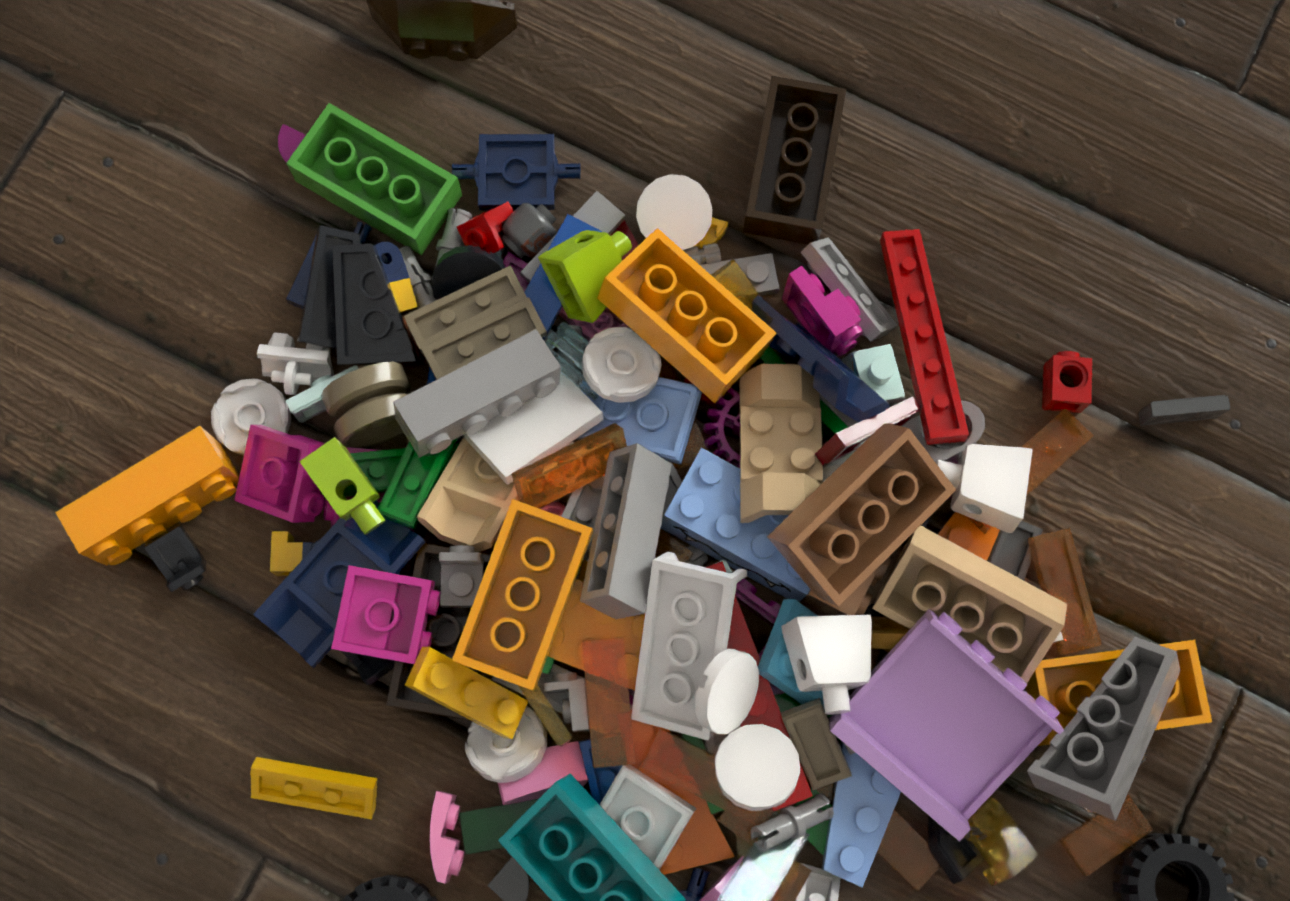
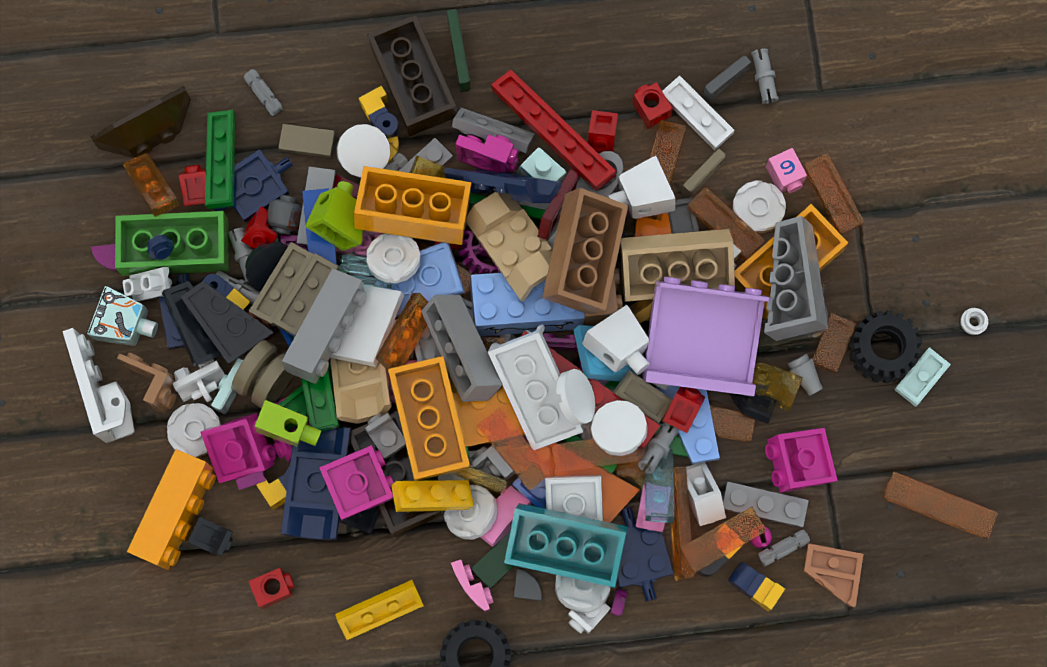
camera: 30 degrees left, 0 degrees up
(158, 309) = (105, 417): none -> white plate
(189, 666) = (260, 584): none -> red brick
(237, 343) = (161, 390): none -> medium nougat bracket
(255, 230) = (120, 320): none -> light aqua torso
(270, 522) = (250, 479): none -> magenta tile
(313, 208) = (147, 284): none -> white hips
(351, 171) = (160, 247): none -> dark blue plate
(397, 94) = (151, 184): none -> clear orange plate
(449, 129) = (193, 185): none -> red bracket
(499, 117) = (220, 159): none -> green tile
(604, 71) = (263, 92): none -> light grey axle
(617, 160) = (306, 141): none -> dark tan tile
(722, 174) = (377, 114): none -> leg
(858, 795) = (684, 408): none -> red bracket
(870, 167) = (458, 49): none -> dark green tile
(984, 375) = (602, 130): none -> red bracket
(1049, 843) = (805, 368): none -> light grey cone
(1077, 510) = (694, 183): none -> dark tan tile
(1119, 430) = (697, 113): none -> white plate
(1123, 596) = (759, 205): none -> white tile
(1186, 576) = (786, 171): none -> bright pink brick
(1229, 643) = (833, 194): none -> clear orange plate
(1235, 438) = (764, 76): none -> light grey pin

